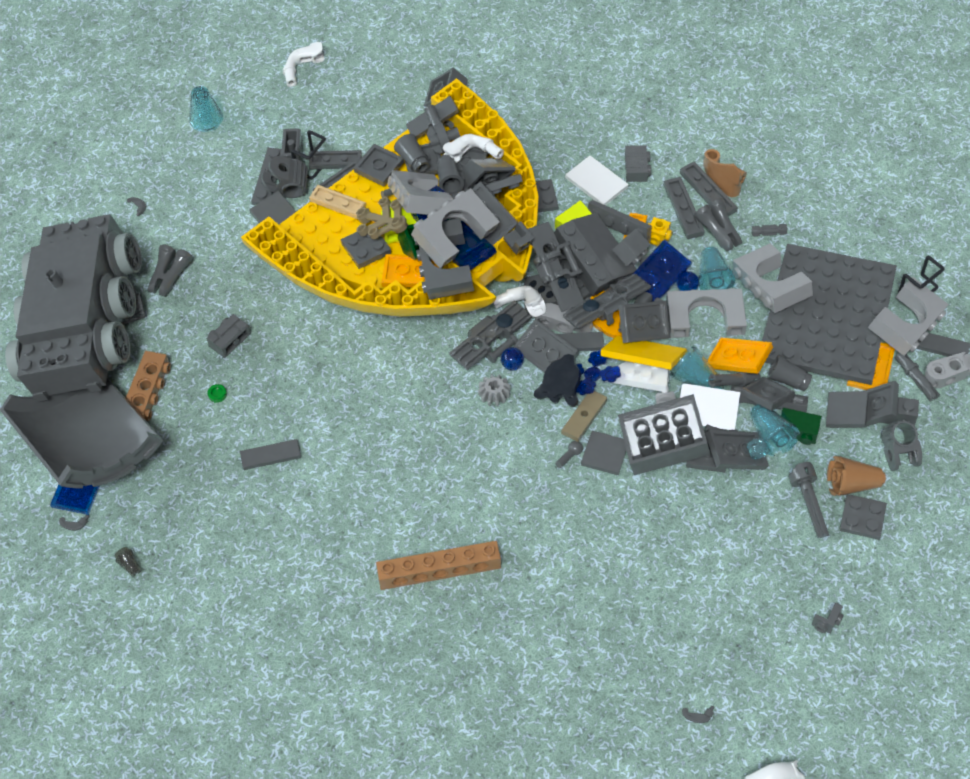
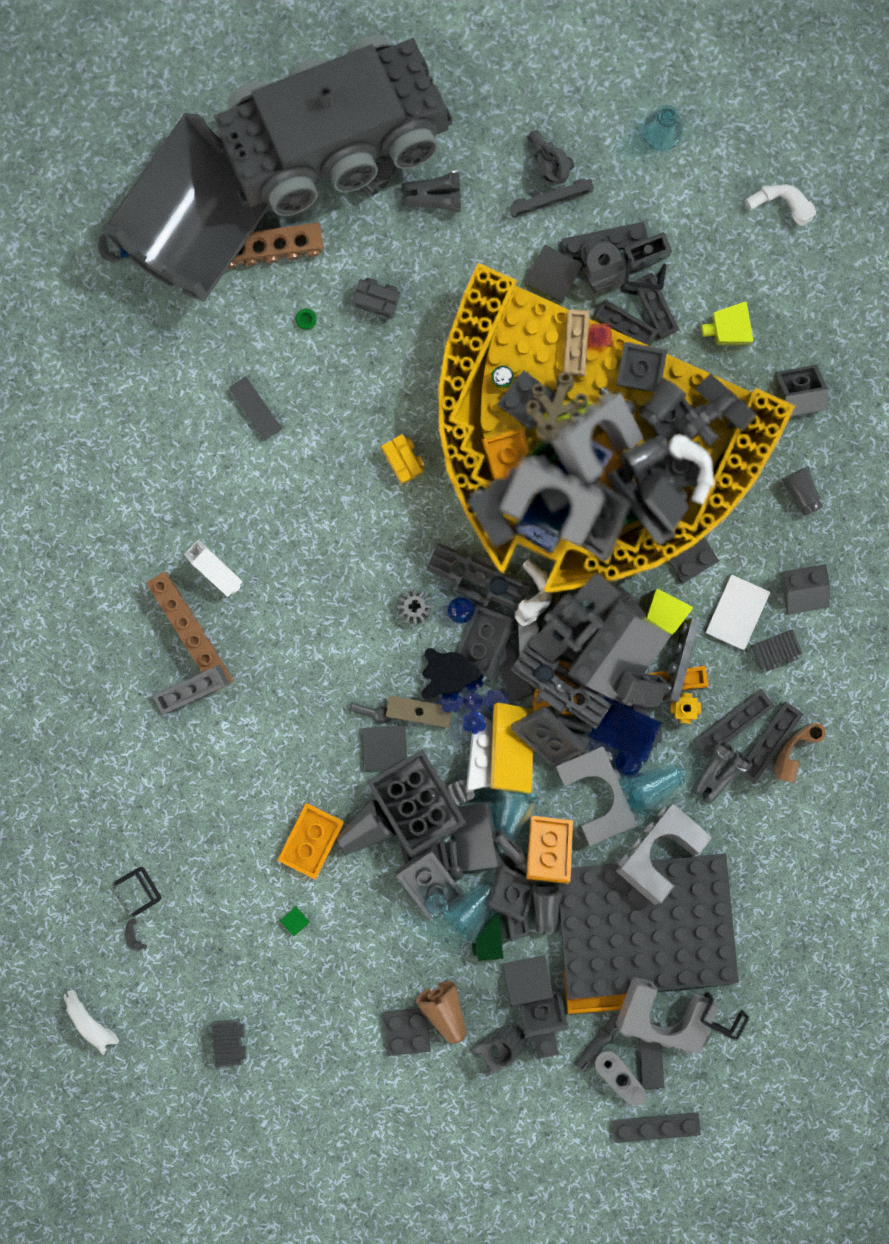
camera: 70 degrees right, 30 degrees up
(127, 560) = (83, 325): clear smoke cone -> none
(139, 203) = (515, 115): dark grey piece -> none
(187, 189) = (551, 171): none -> dark grey pin
(216, 192) = (558, 195): none -> dark grey plate
(338, 256) = (502, 376): none -> tile
(340, 184) = (600, 335): none -> clear pink plate
(368, 359) = (402, 459): none -> yellow brick
(376, 118) = (730, 326): none -> neon yellow torso
(389, 527) = (213, 568): none -> white slope
(490, 575) = (191, 689): none -> dark grey plate
(519, 238) = (581, 569): dark grey panel -> none
(521, 111) = (803, 490): none -> dark grey plant
(596, 131) = (806, 589): none -> dark grey slope
(664, 534) = (310, 840): none -> light orange plate
(671, 483) = (366, 829): none -> dark grey cone
(675, 692) = (153, 901): none -> black piece
(732, 572) = (295, 921): none -> green tile
(767, 230) = (739, 828): dark grey axle -> none
(801, 479) = (426, 959): dark grey piece -> none
(826, 625) = (278, 1035): dark grey bracket -> none
(828, 663) = (228, 1043): none -> dark grey brick

